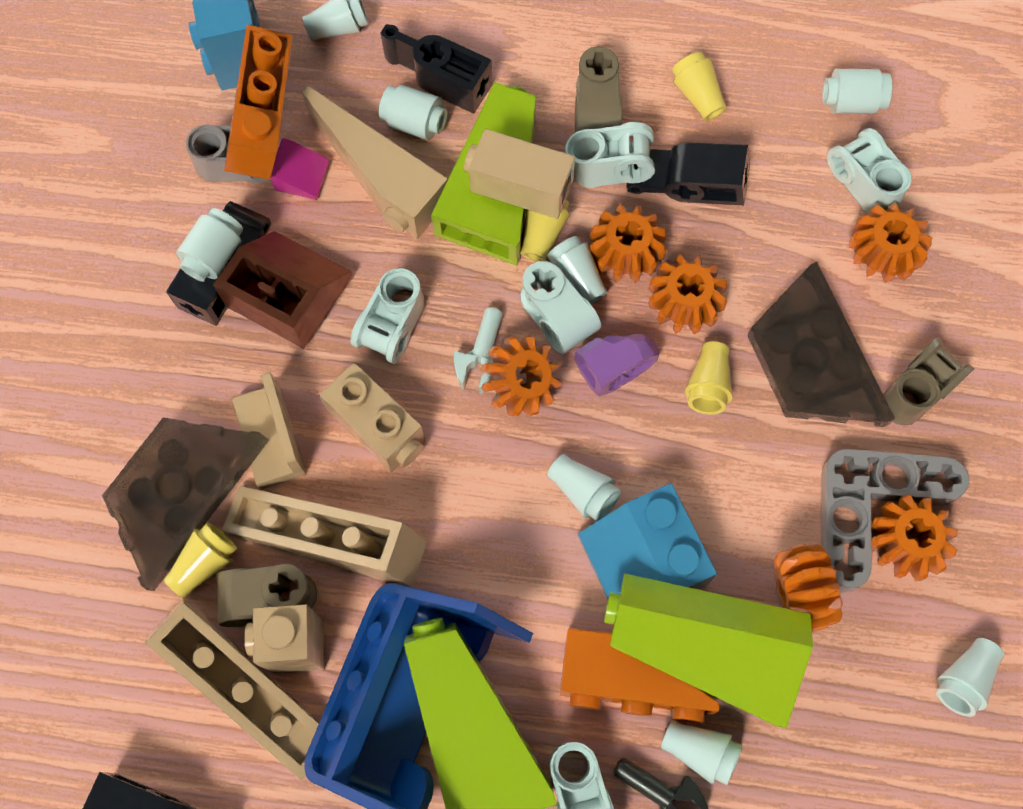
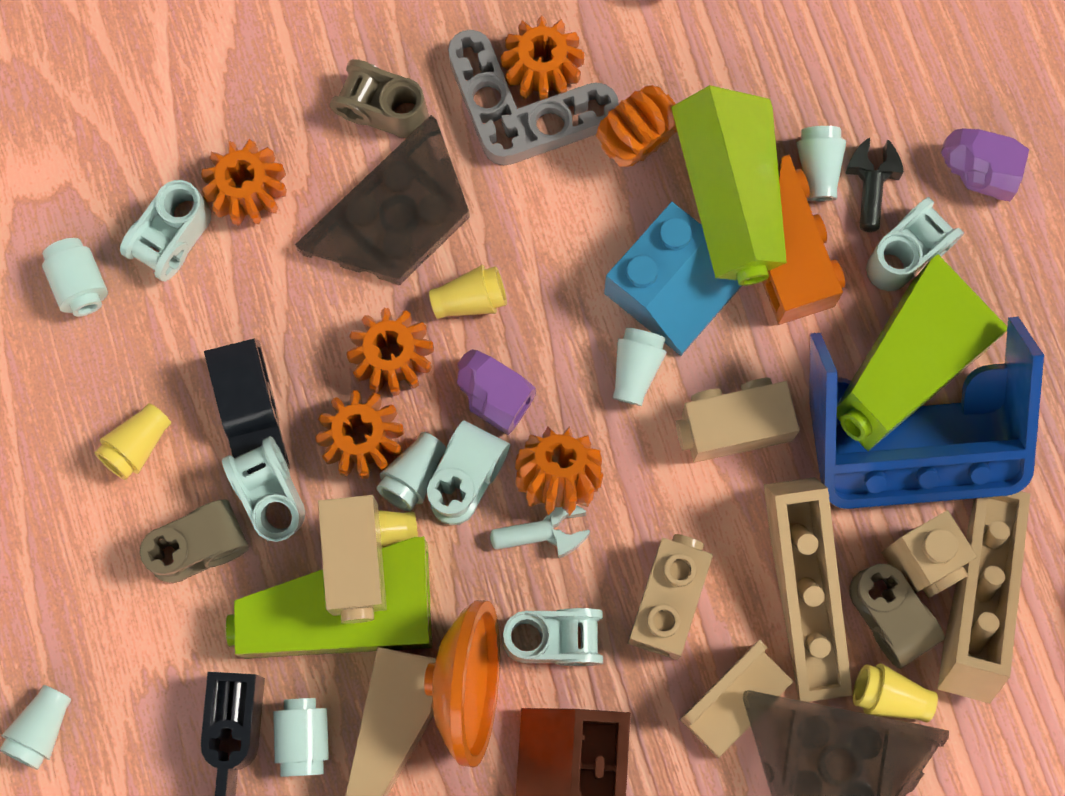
camera: 115 degrees left, 5 degrees up
(379, 221) = (467, 683): none -> orange dish
(491, 545) = (737, 421): none -> tan brick

